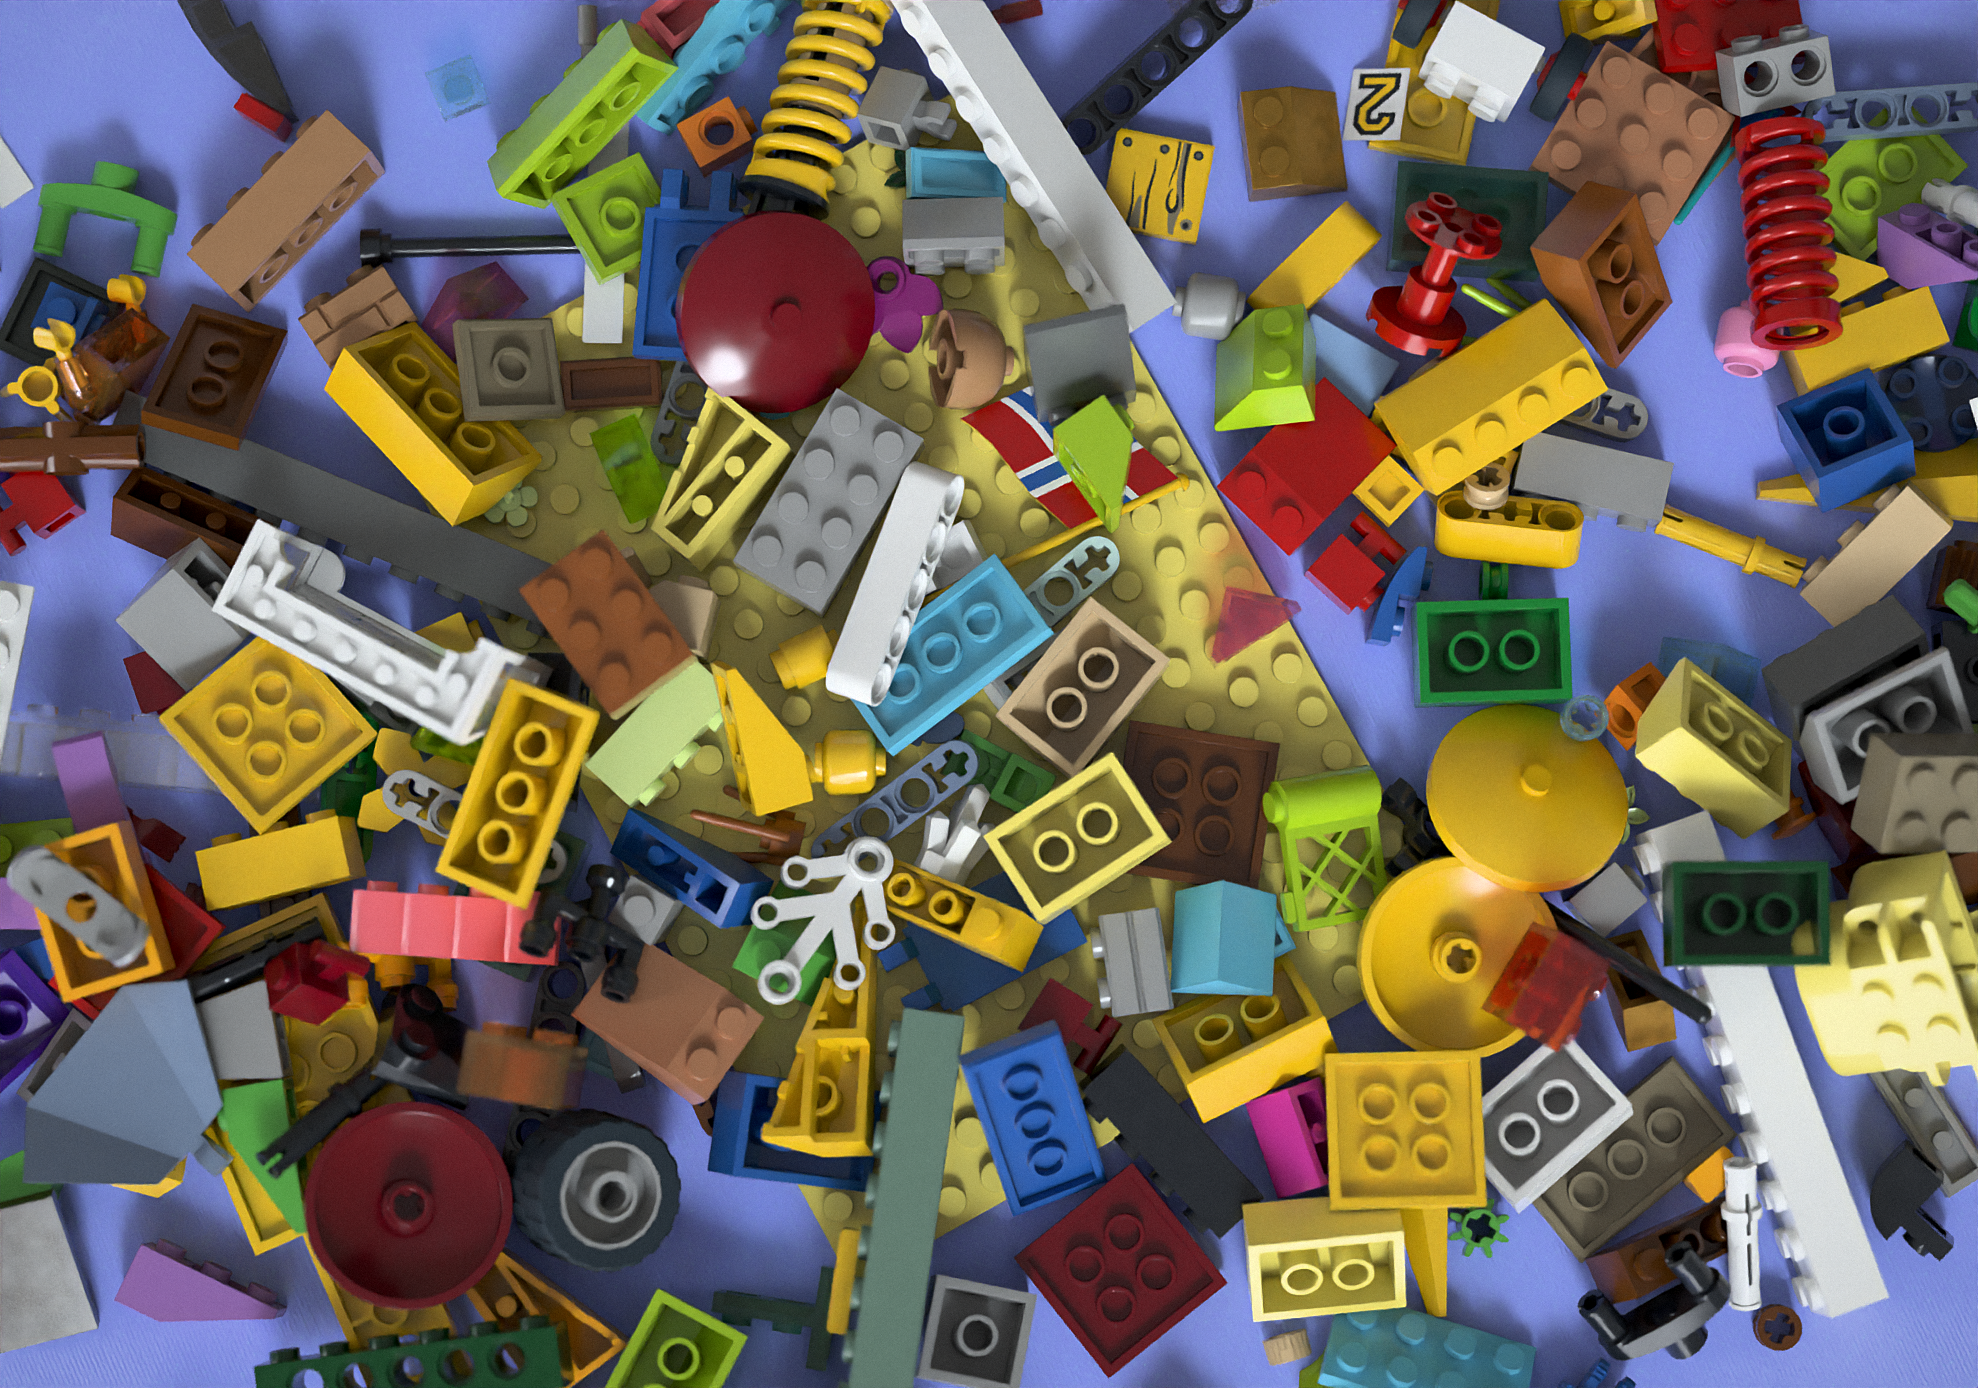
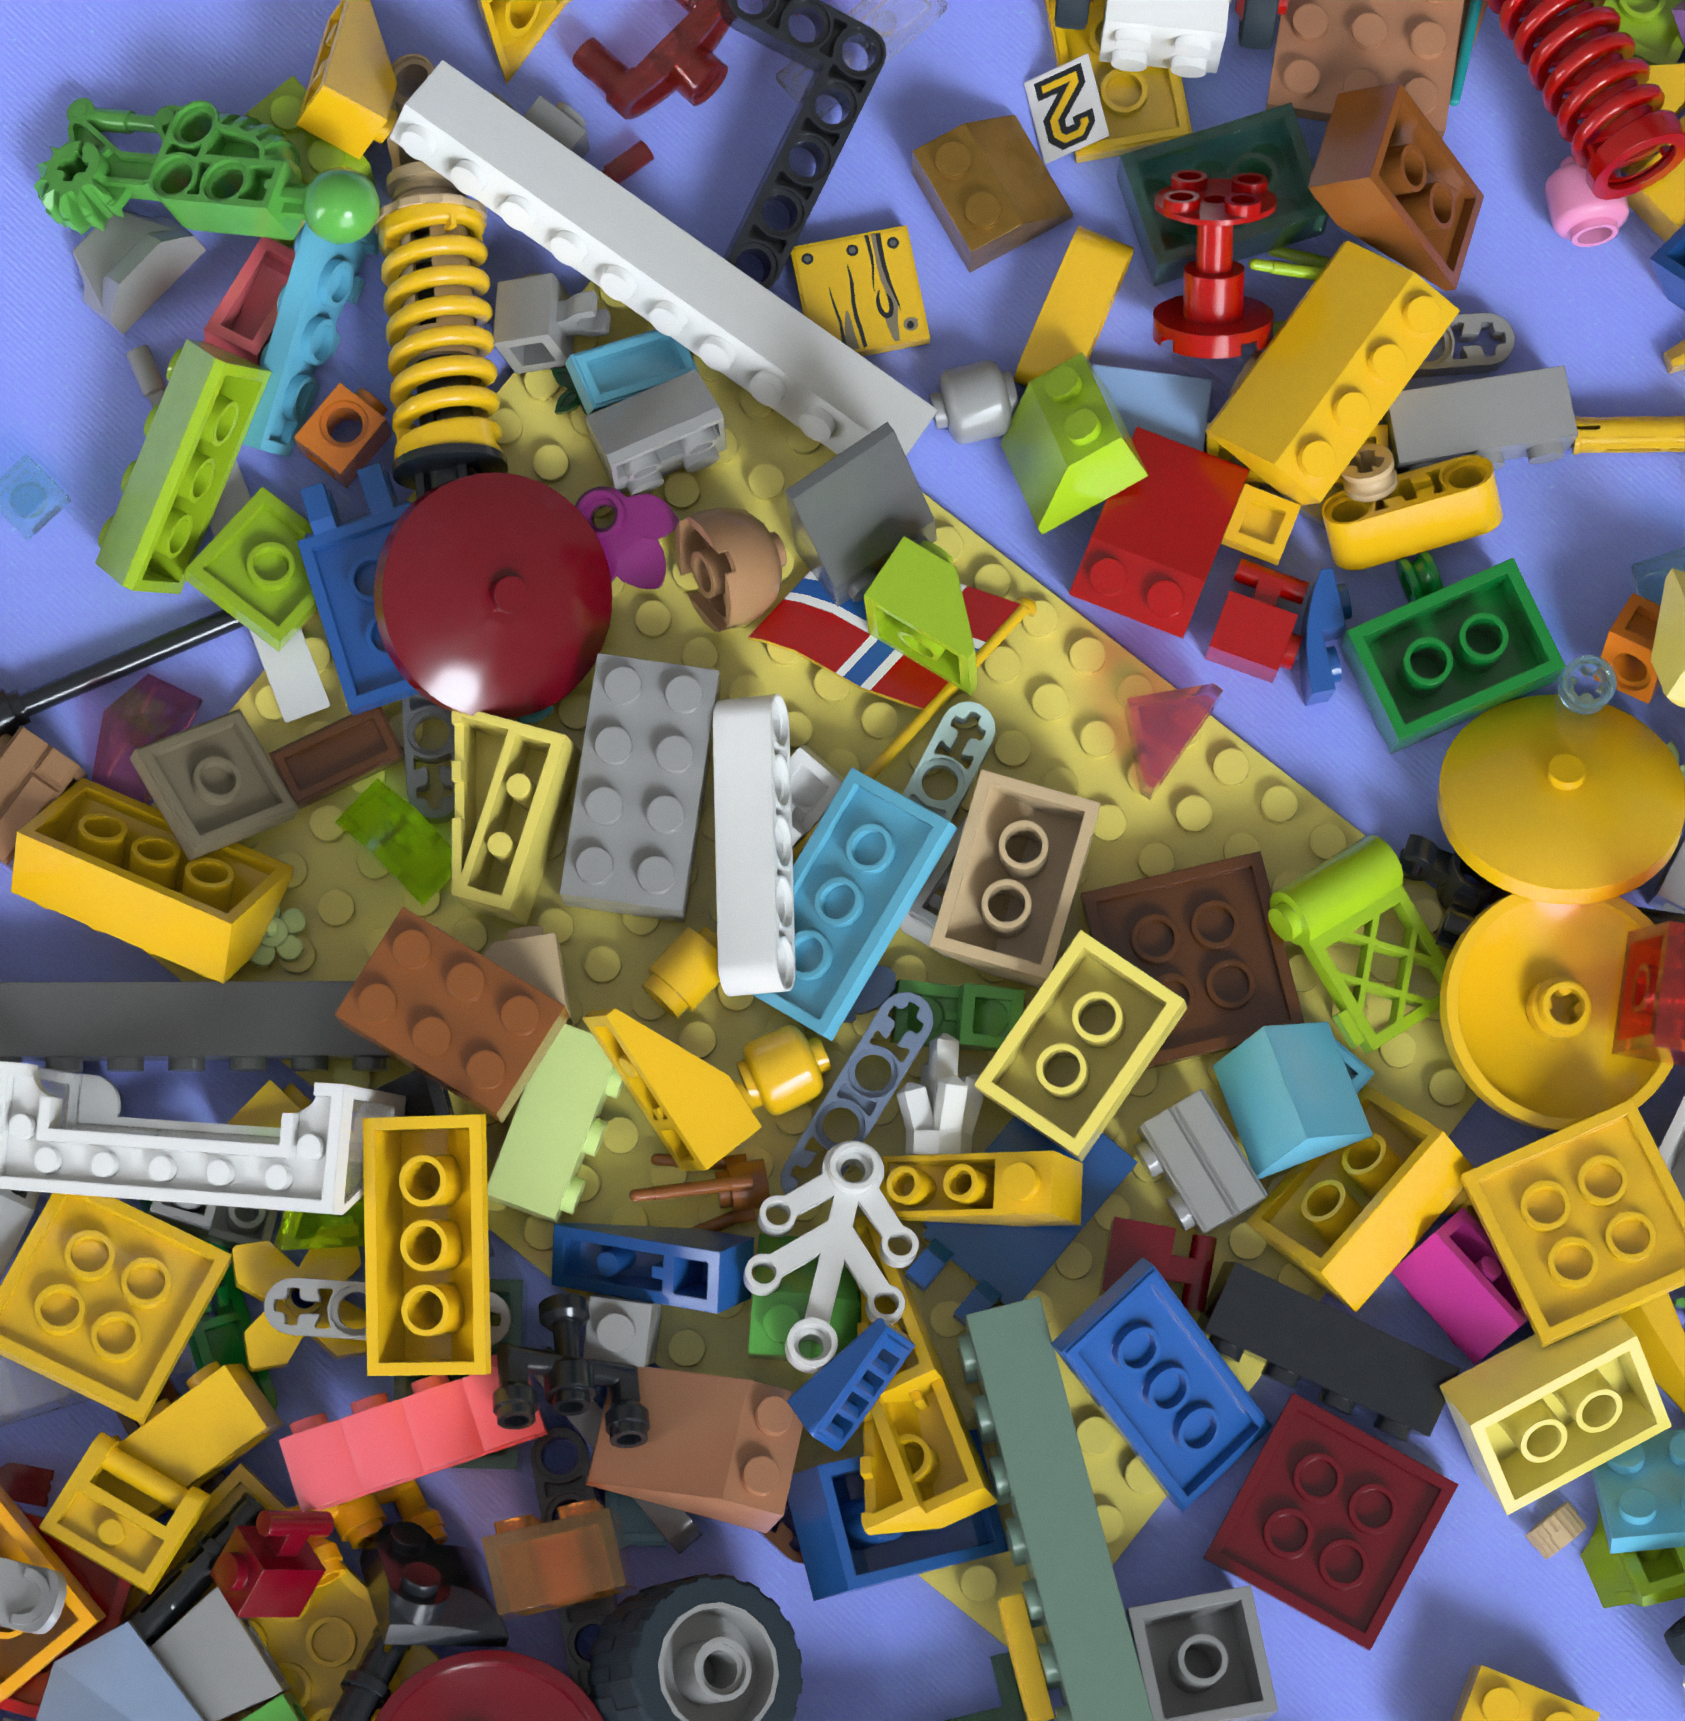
camera: 25 degrees left, 5 degrees down
(204, 905) = (114, 1531): none -> yellow plate
(796, 1023) = (850, 1384): none -> blue slope

